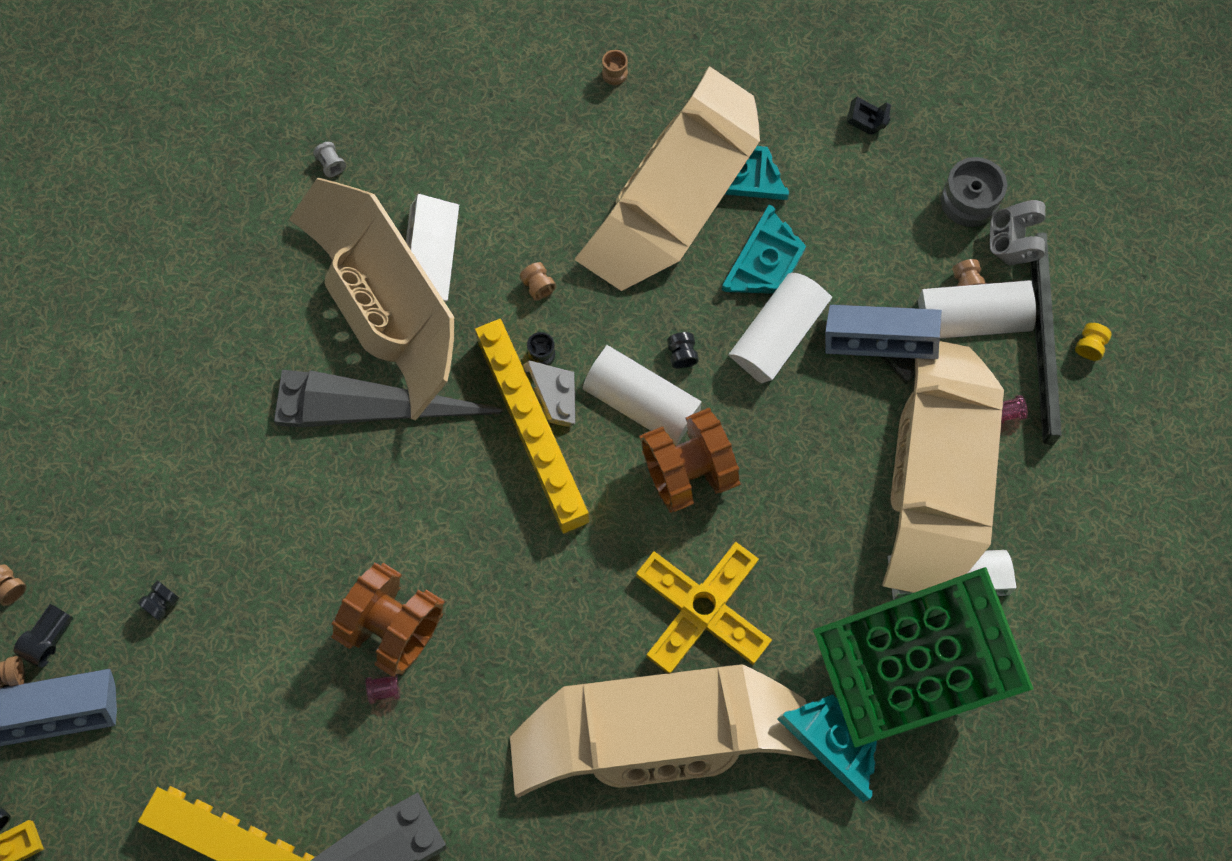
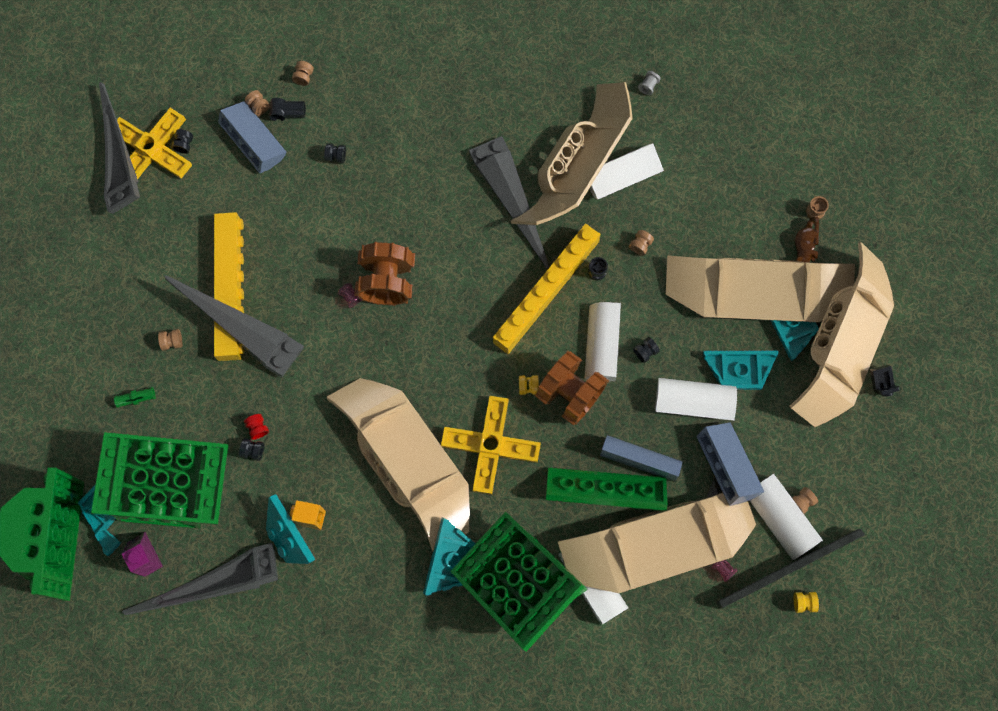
camera: 65 degrees right, 5 degrees up
(554, 392) = (575, 290): light grey wing -> none
(648, 100) = (806, 240): none -> reddish brown animal
(648, 516) = (533, 384): none -> yellow wheel
(804, 119) = (847, 342): none -> tan piece
(822, 430) = (641, 458): none -> sand blue brick
(840, 493) = (607, 489): none -> green plate
(973, 191) = (863, 464): dark grey wheel -> none
(1009, 230) = (850, 512): light grey piece -> none

